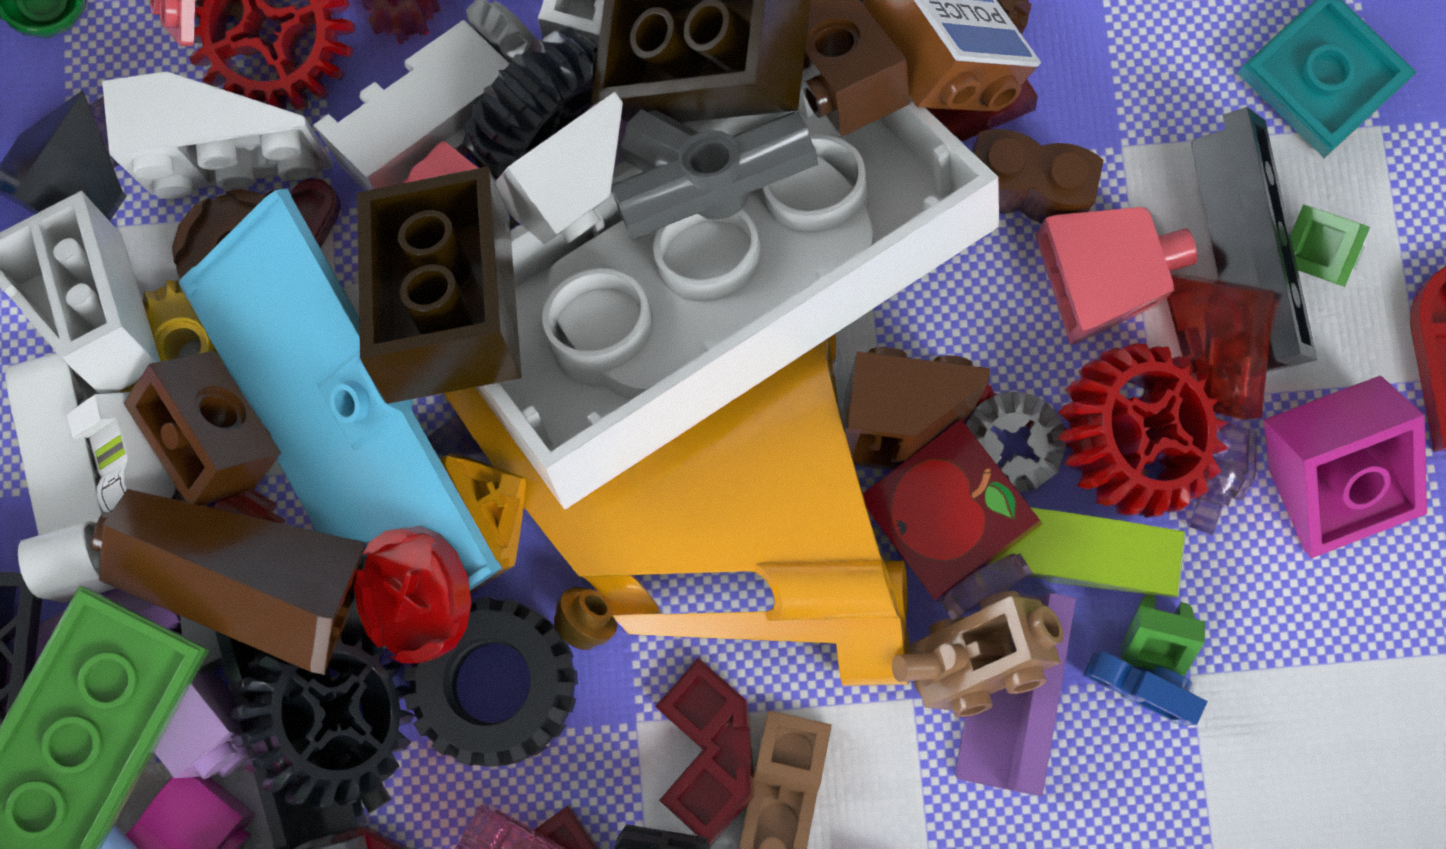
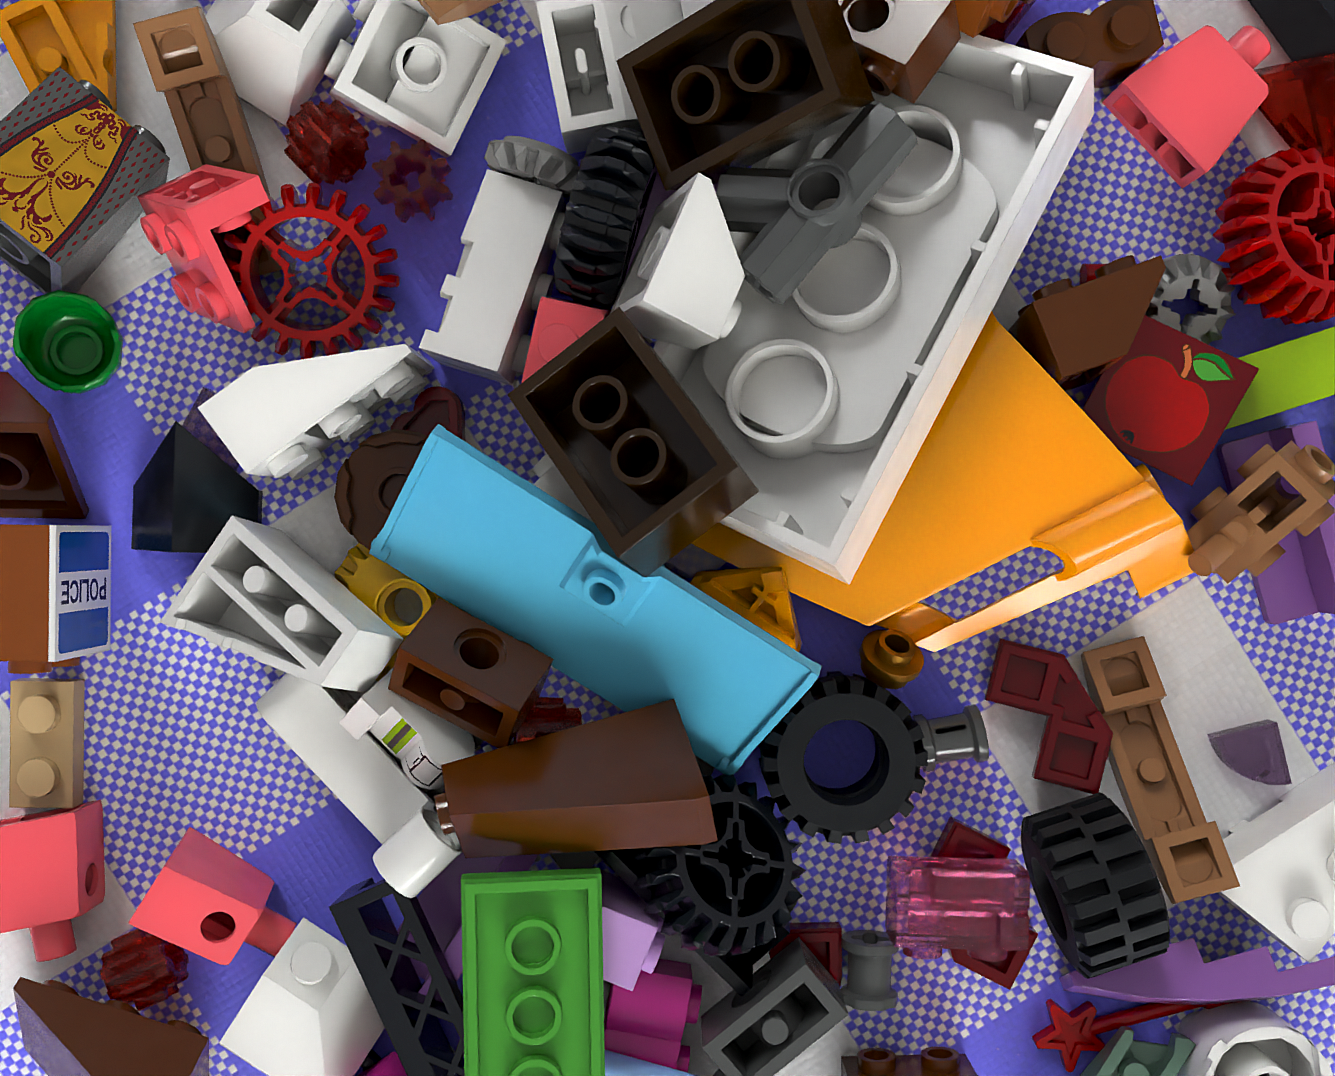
camera: 25 degrees left, 10 degrees up
(413, 594) = (749, 725): red tile -> none
(601, 723) = (954, 737): none -> dark grey bush
(985, 583) = (1237, 454): clear purple tile -> none

